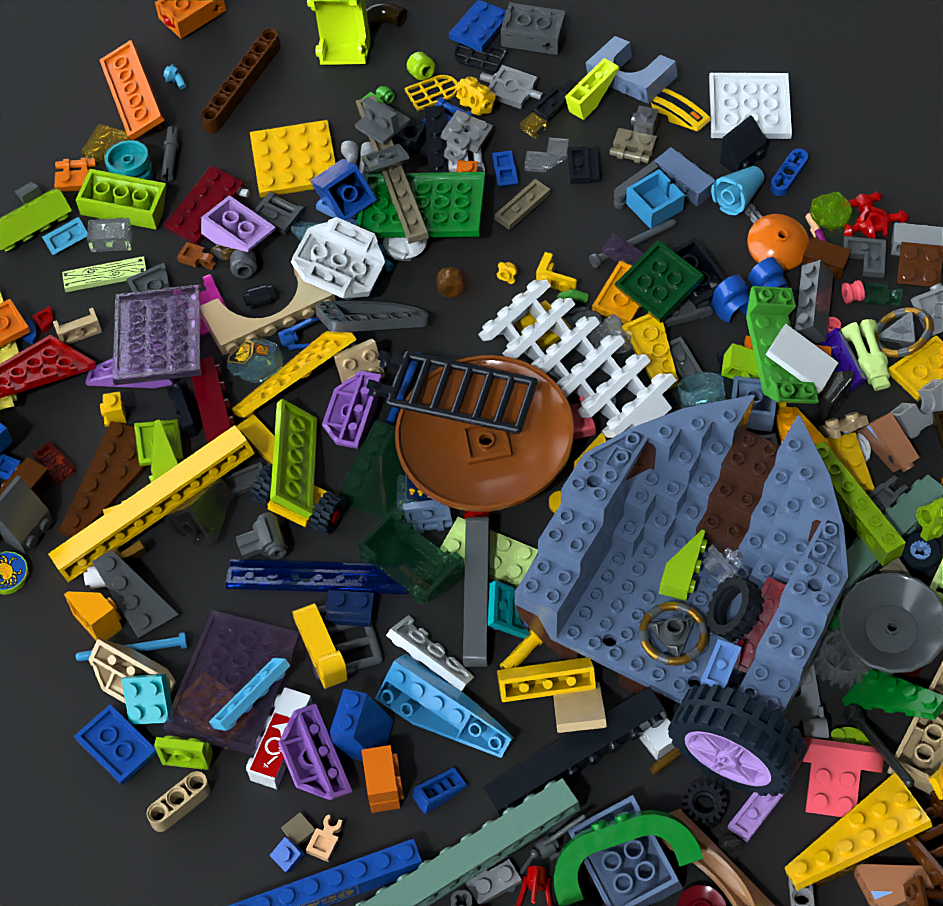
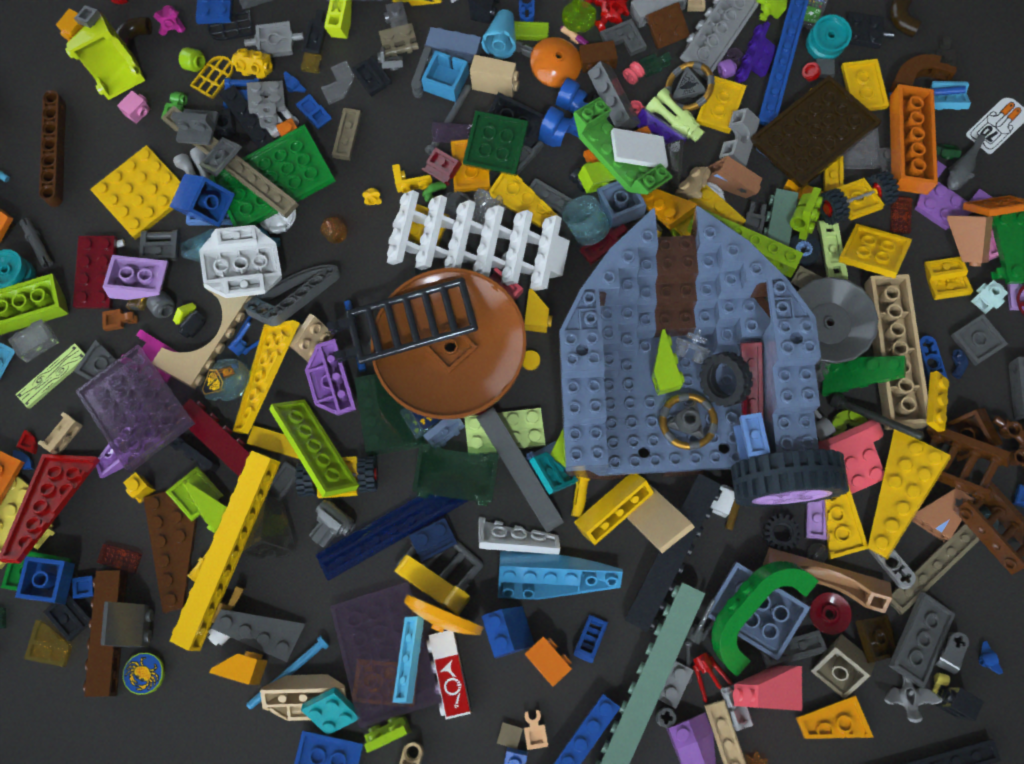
camera: 30 degrees left, 15 degrees up
(259, 279) = (182, 312): none -> neon yellow tile
(307, 670) = (441, 618): none -> light orange dish
(312, 755) = (488, 678): medium lavender wedge -> none
(339, 81) = (134, 106): none -> bright pink brick
(423, 21) = (169, 20): none -> dark pink rock
(501, 134) = (293, 84): none -> blue piece
(594, 278) = (442, 166): none -> plate
(613, 163) = (391, 62): none -> dark grey bracket
(704, 221) = (494, 76): none -> tan brick
(773, 201) = (531, 30): none -> lime tile
(776, 831) = (843, 527): none -> yellow wing

